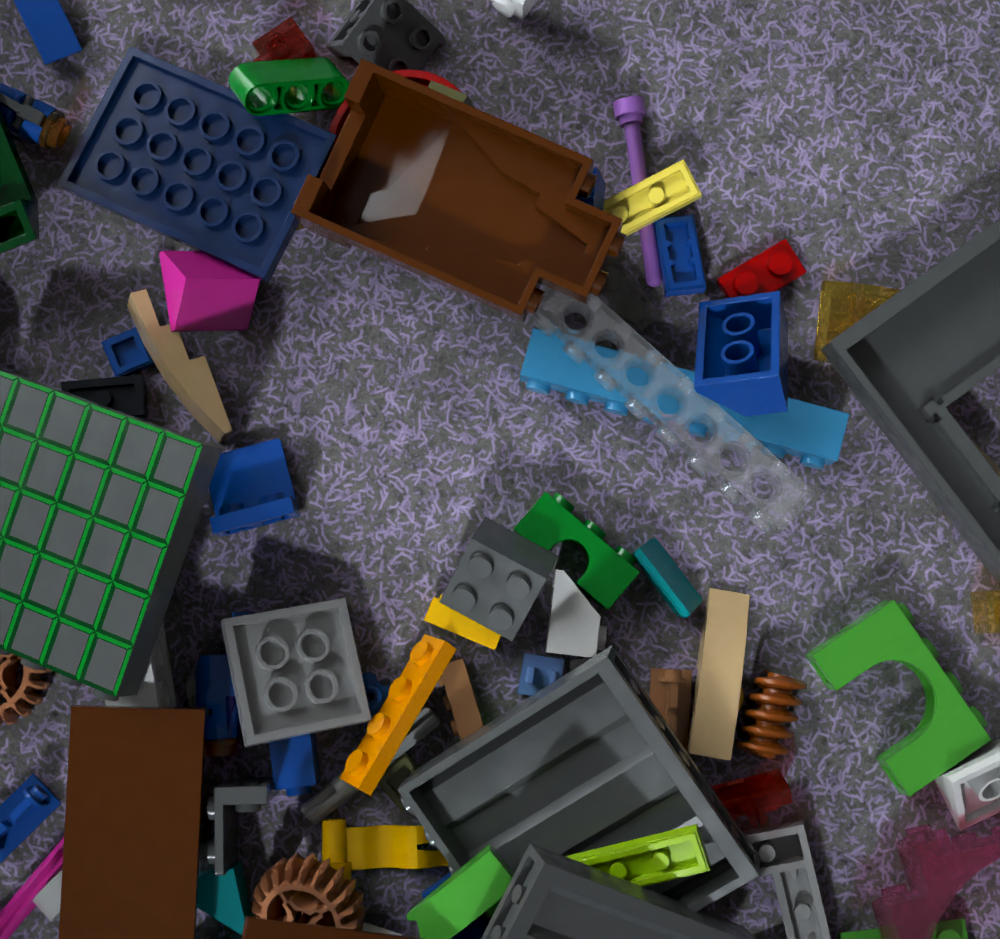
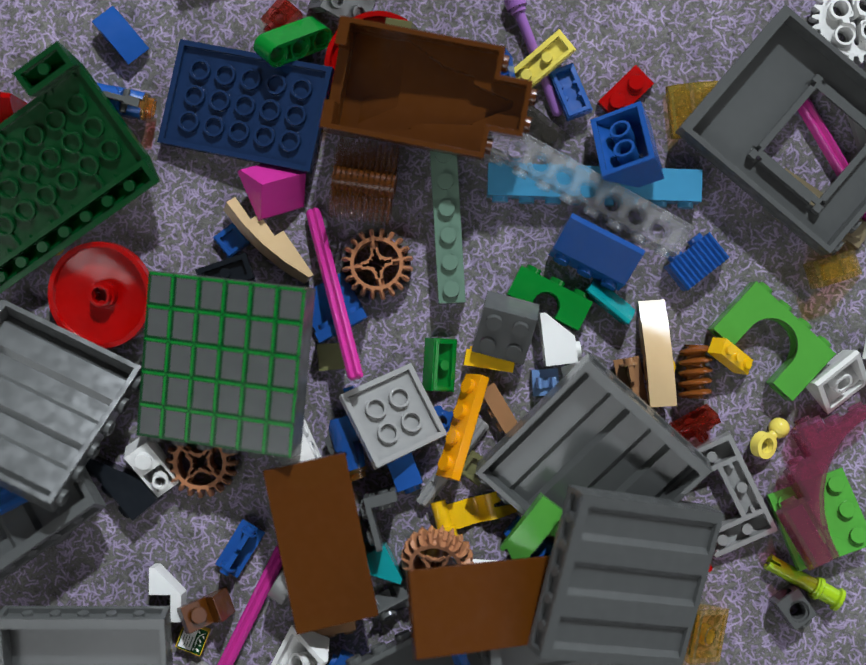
camera: 15 degrees left, 5 degrees up
(230, 560) = (330, 357): none -> olive tile
(254, 470) = (334, 295): none -> dark pink axle
(331, 458) = (373, 242): none -> nougat gear
(341, 311) = (364, 181): none -> reddish brown piece
(389, 611) = (439, 364): none -> green slope
(448, 411) = (447, 228): none -> sand green brick
(652, 857) = (644, 475): lime tile -> none
(661, 499) = (595, 252): none -> blue slope
(810, 548) = (696, 261): none -> blue brick
(829, 704) = (730, 355): none -> yellow piece
(853, 853) = (765, 443): none -> light yellow plate

